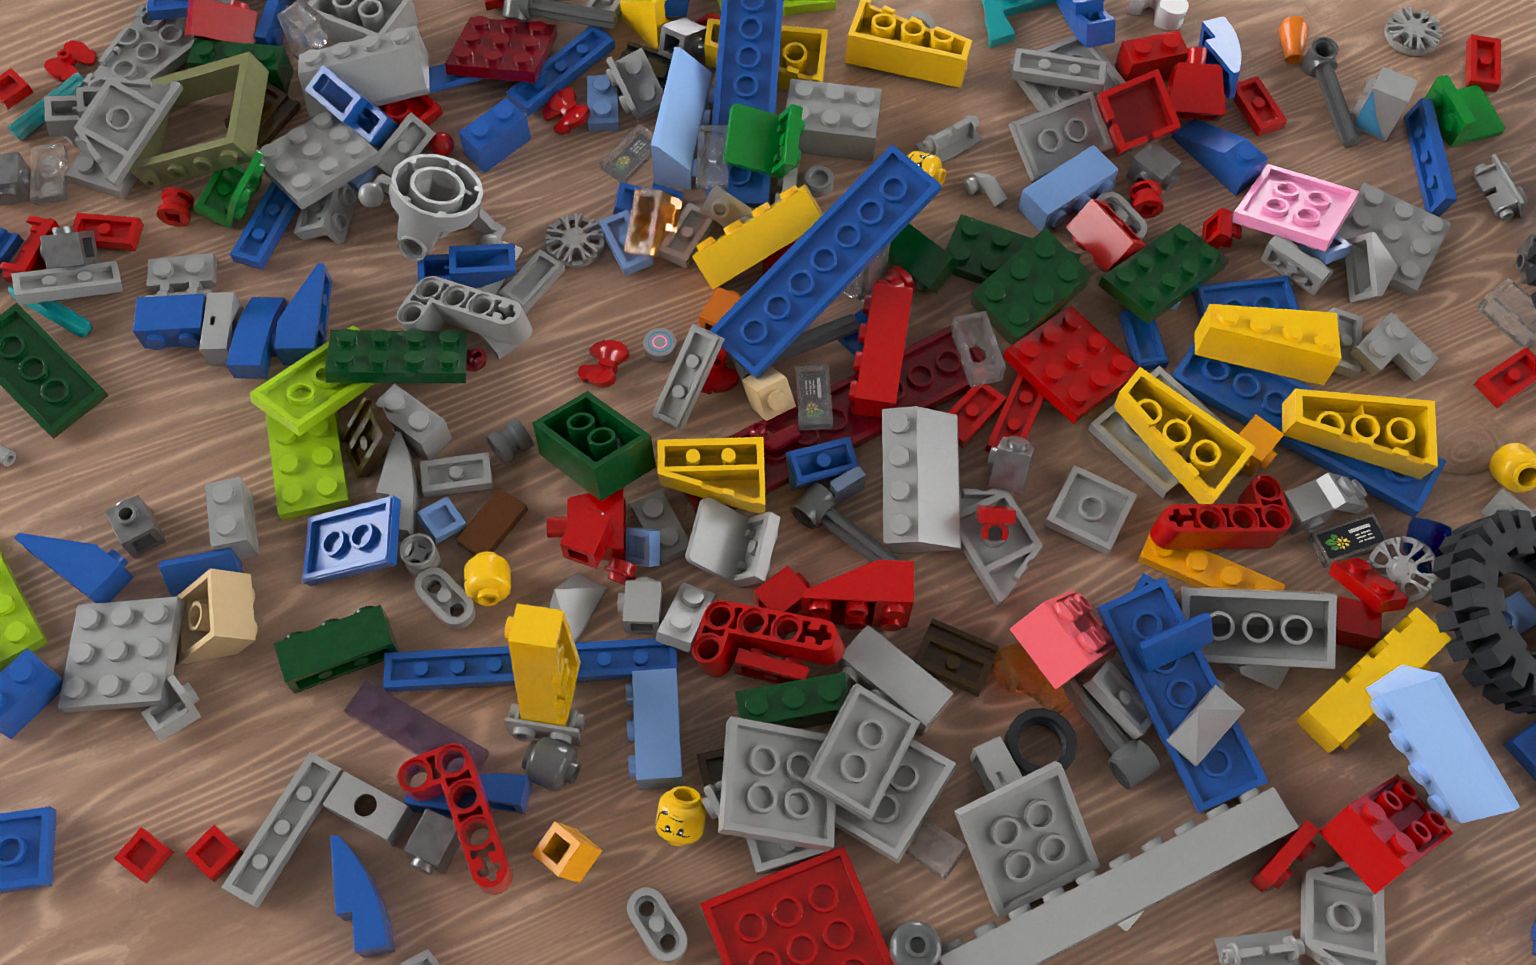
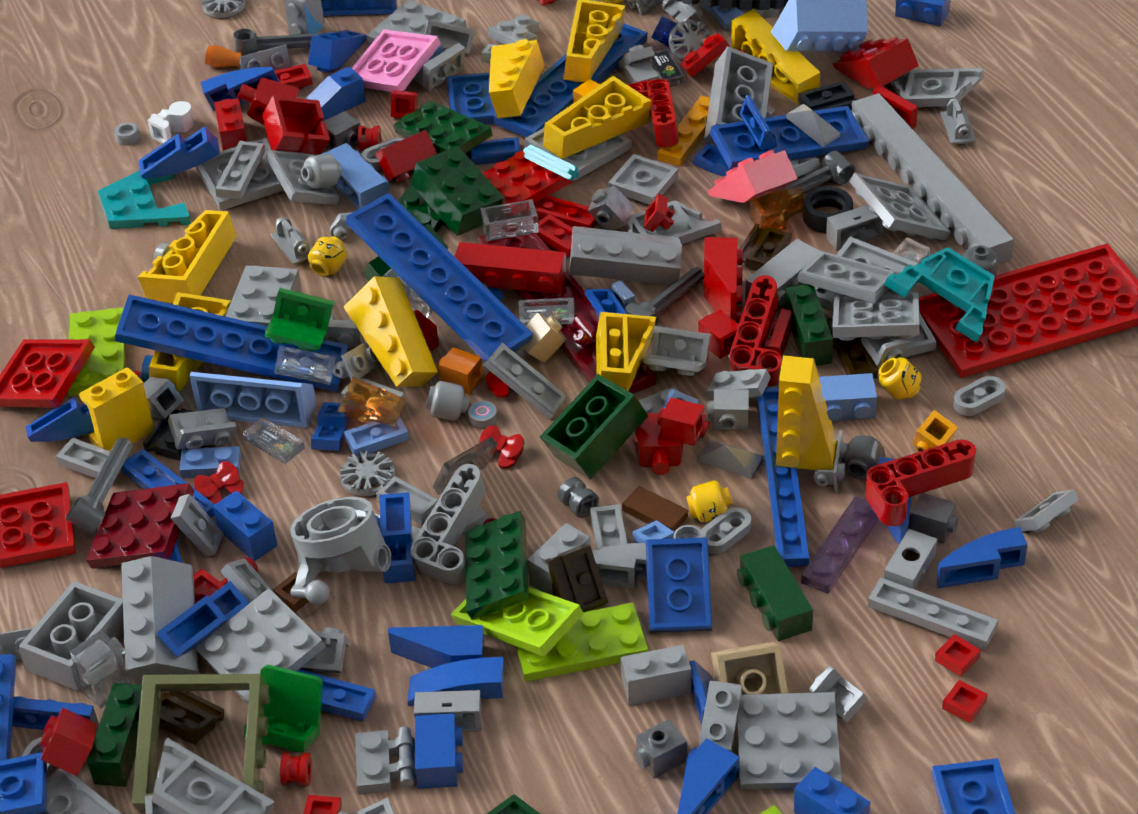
camera: 85 degrees left, 20 degrees down
(152, 579) = (721, 713): none -> light grey hinge
(486, 85) = (197, 525): none -> light grey plate
(551, 320) = (477, 455): none -> clear smoke plate
(672, 304) = (447, 401): none -> light grey head
(857, 905) = (953, 279): none -> teal wing
(1053, 144) = (321, 171): none -> light grey head
(1085, 387) = (551, 162): none -> axle
(1289, 83) = (275, 57): none -> light grey hinge
(1294, 761) = (828, 97): none -> black plate
(1324, 147) = (334, 49): none -> blue slope

